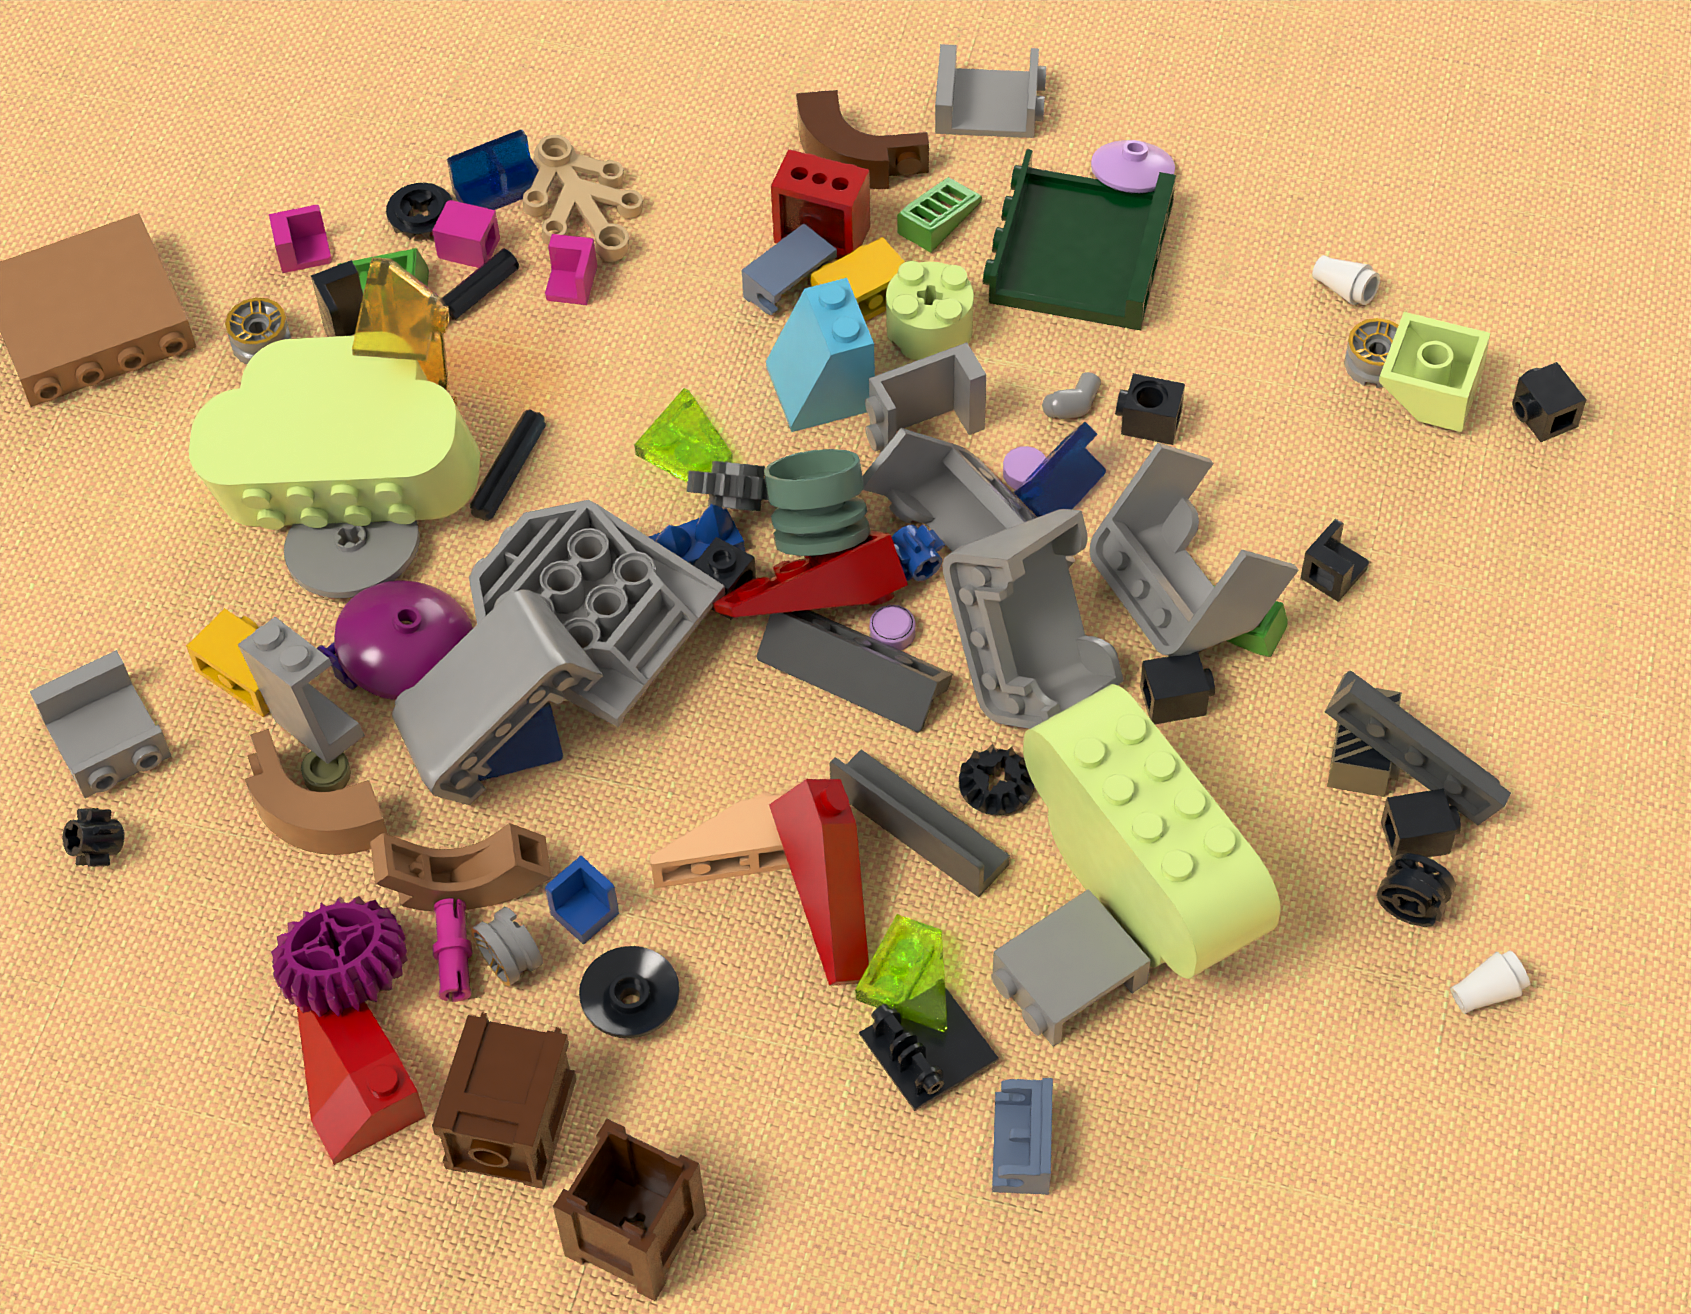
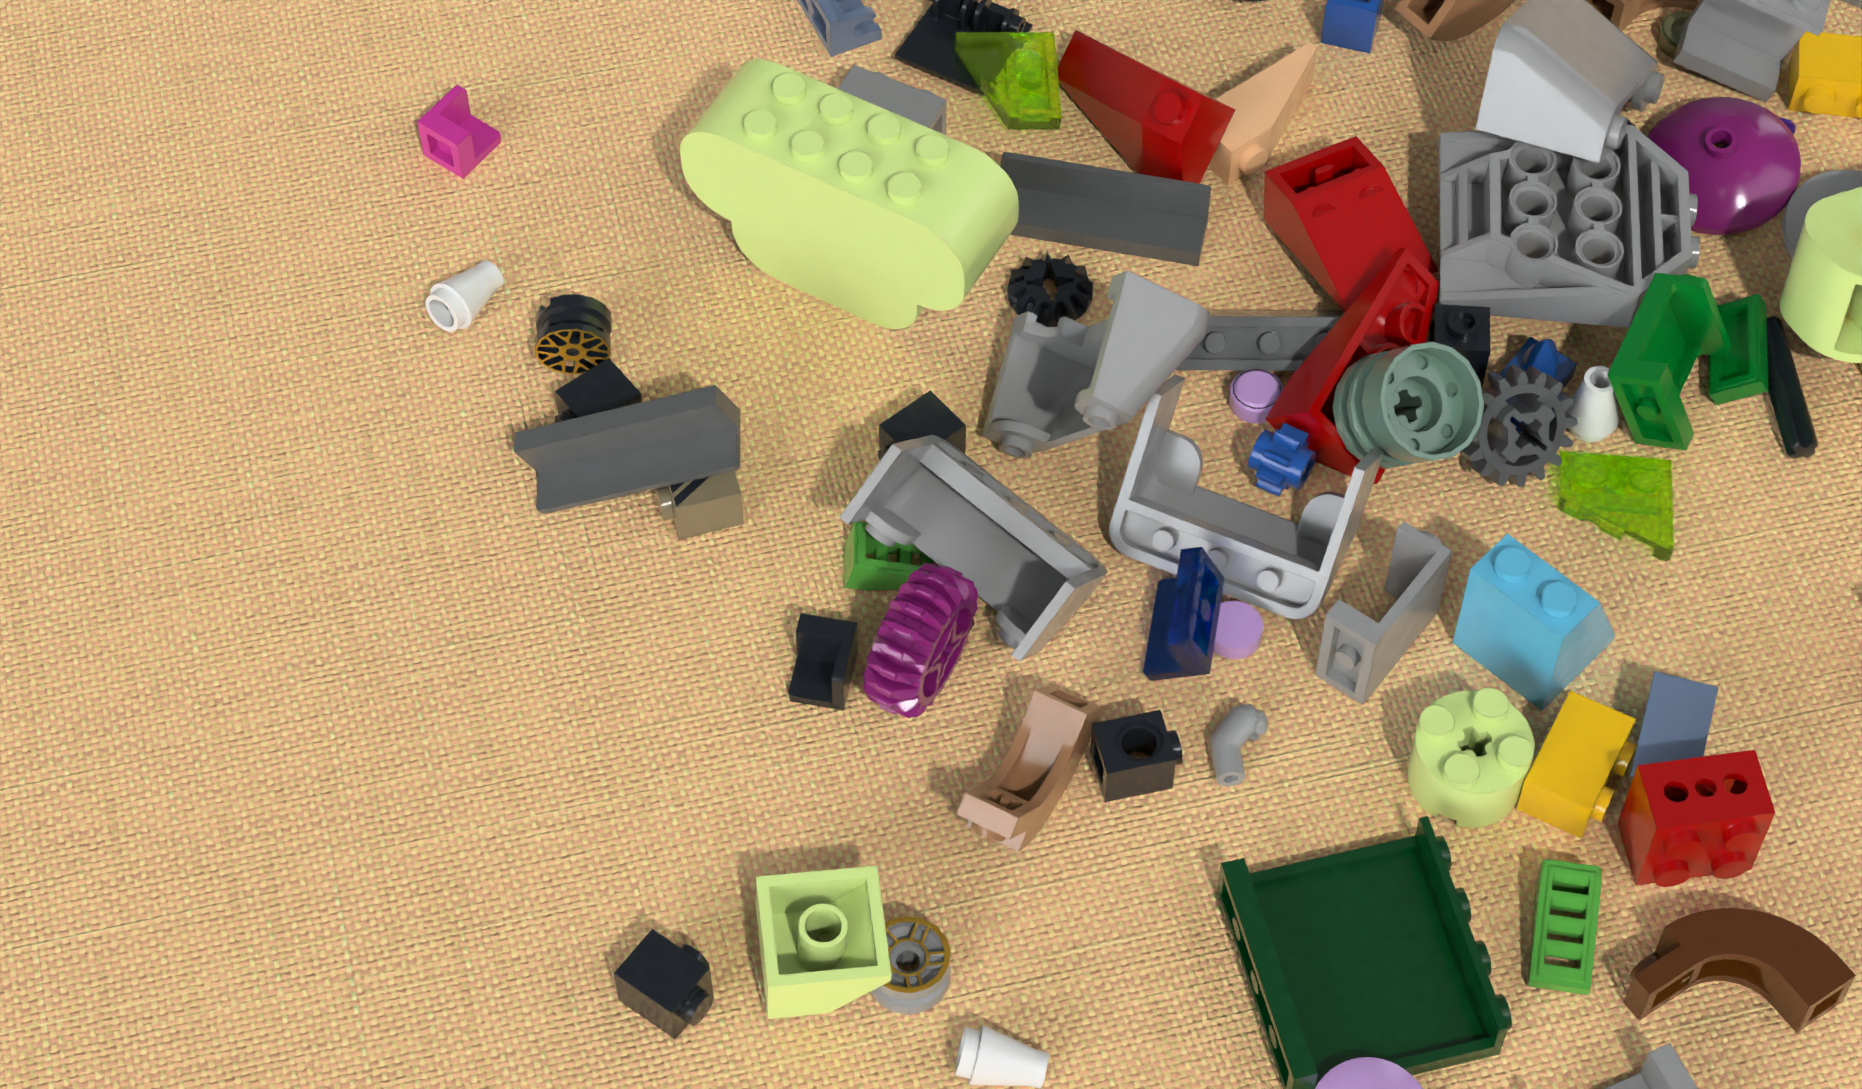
camera: 150 degrees right, 0 degrees up
(520, 492) = (1746, 366): none -> green tile
(629, 461) = (1657, 354): none -> green panel
(660, 496) = (1594, 406): none -> white cone
(738, 700) = (1341, 217): none -> red slope
(1246, 414) = (1035, 769): none -> medium nougat arch
(1266, 514) = (920, 640): none -> magenta gear
(1436, 1152) = (454, 135): none -> dark pink panel

